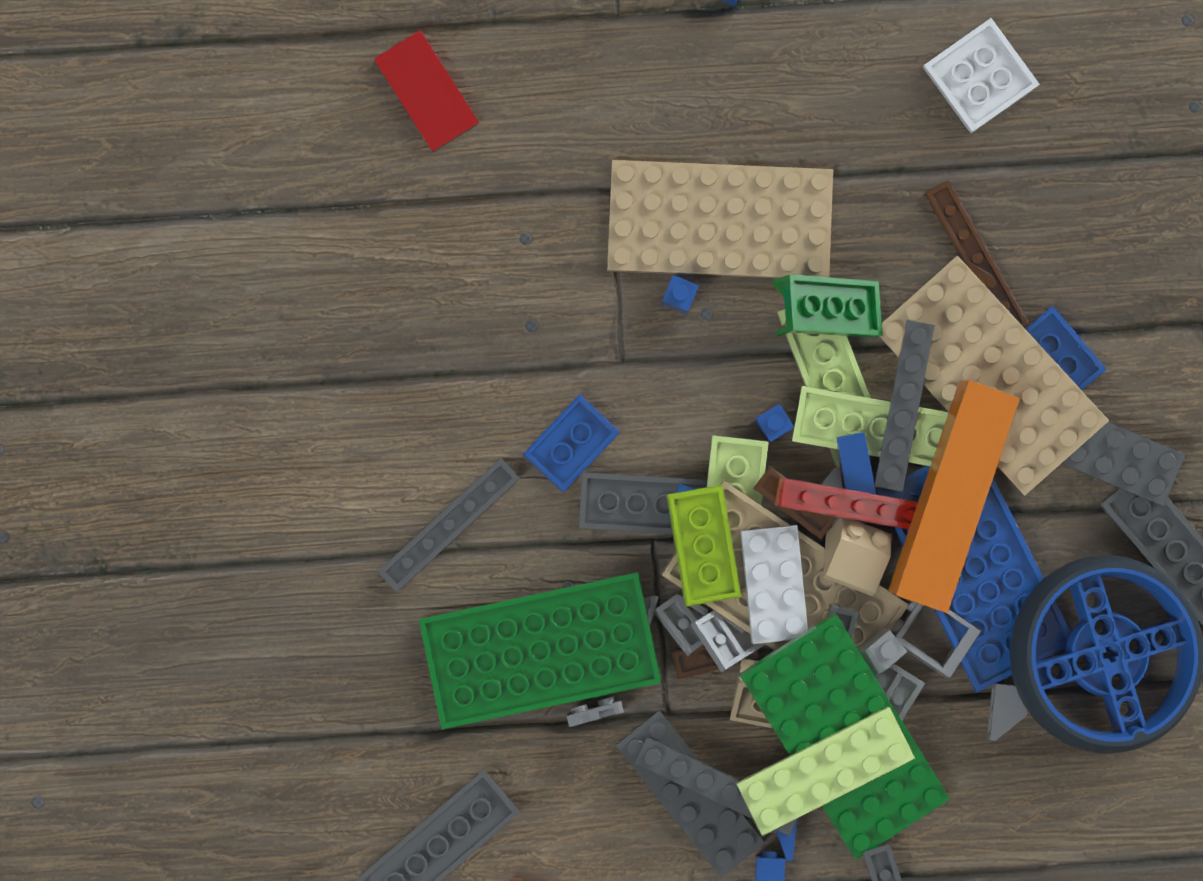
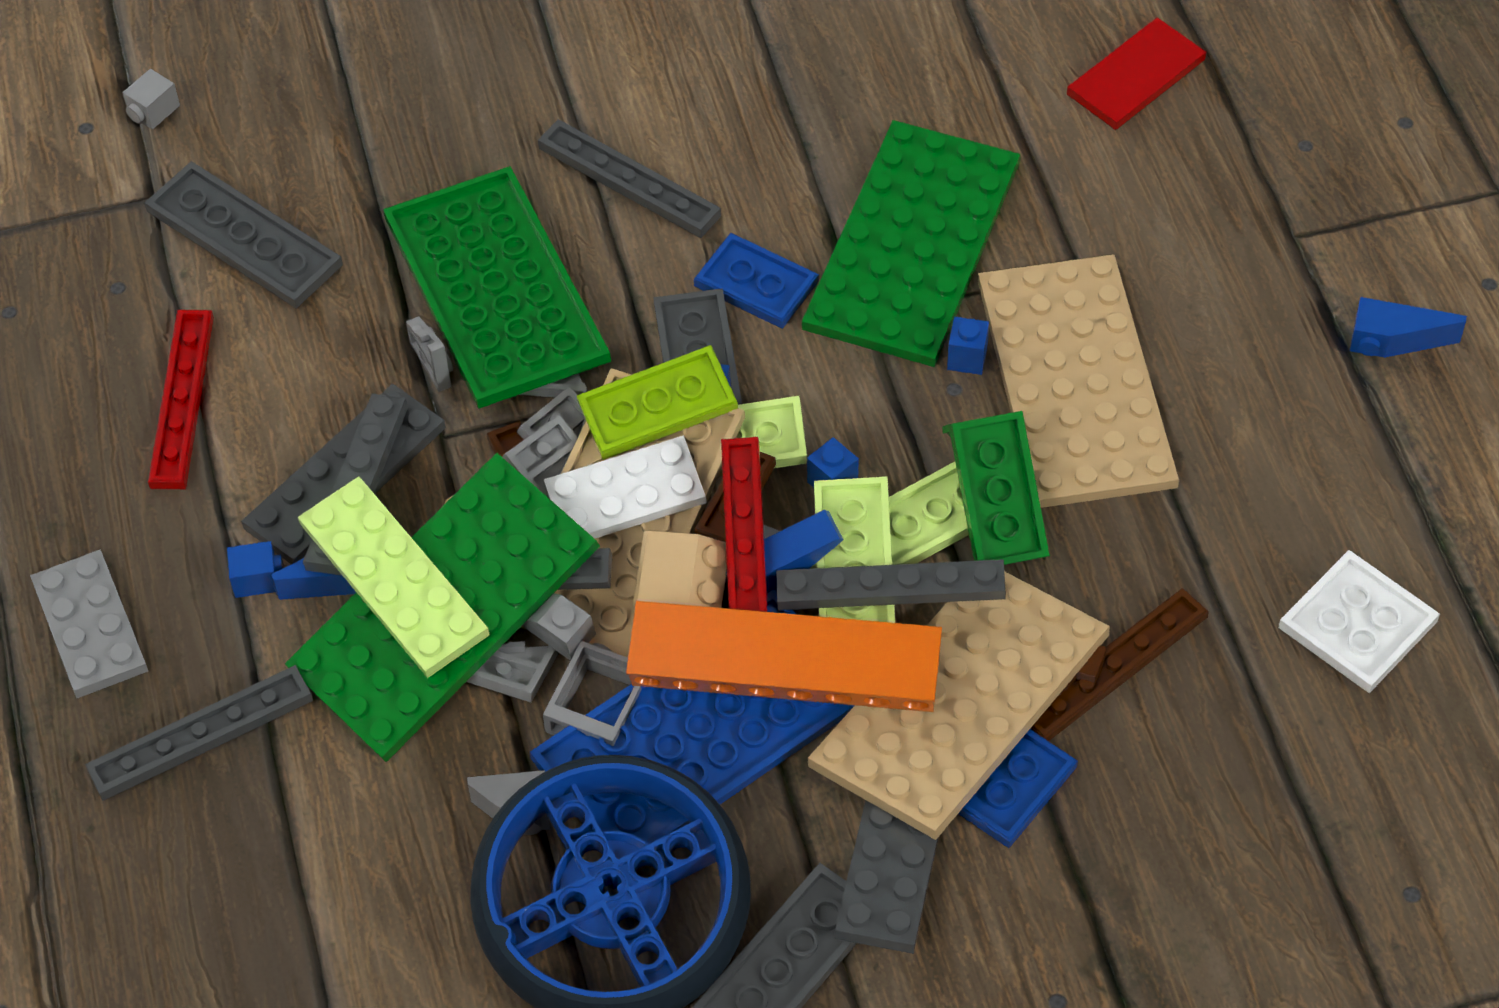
camera: 80 degrees right, 30 degrees down
(559, 312) = (911, 243): none -> green plate

